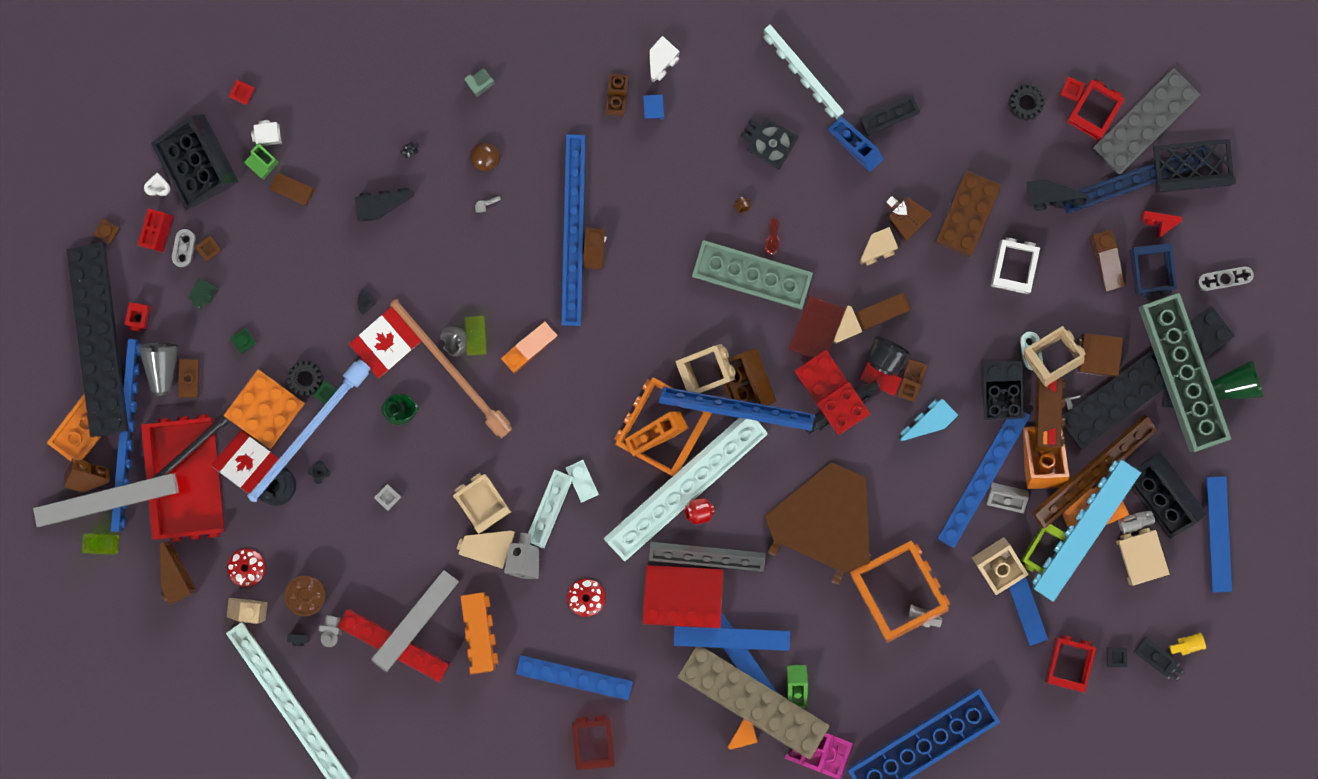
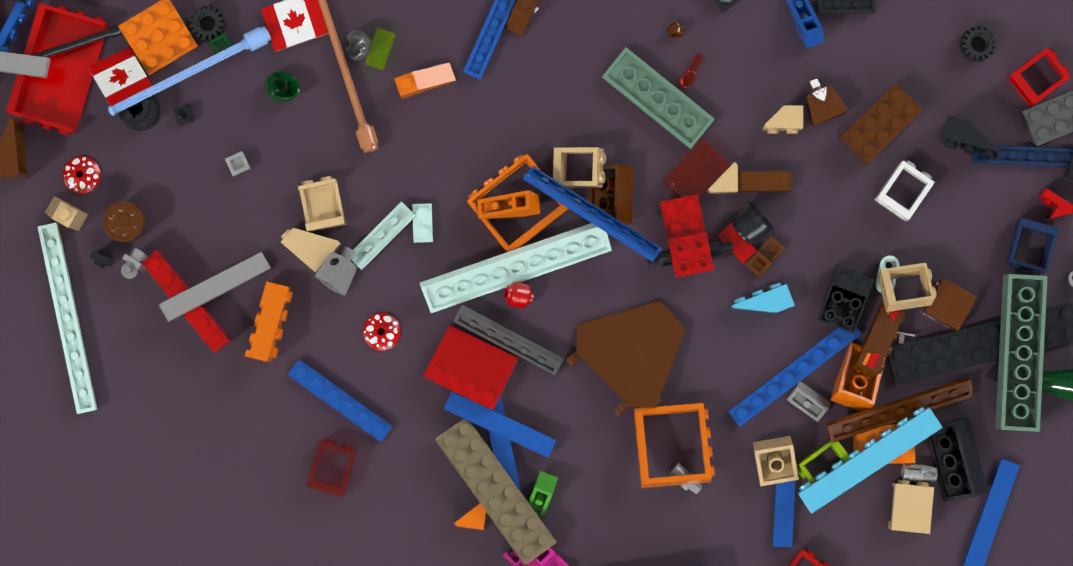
camera: 25 degrees right, 0 degrees up
(1072, 89) = (1025, 49): red plate -> none
(1107, 259) = (992, 219): slope -> none

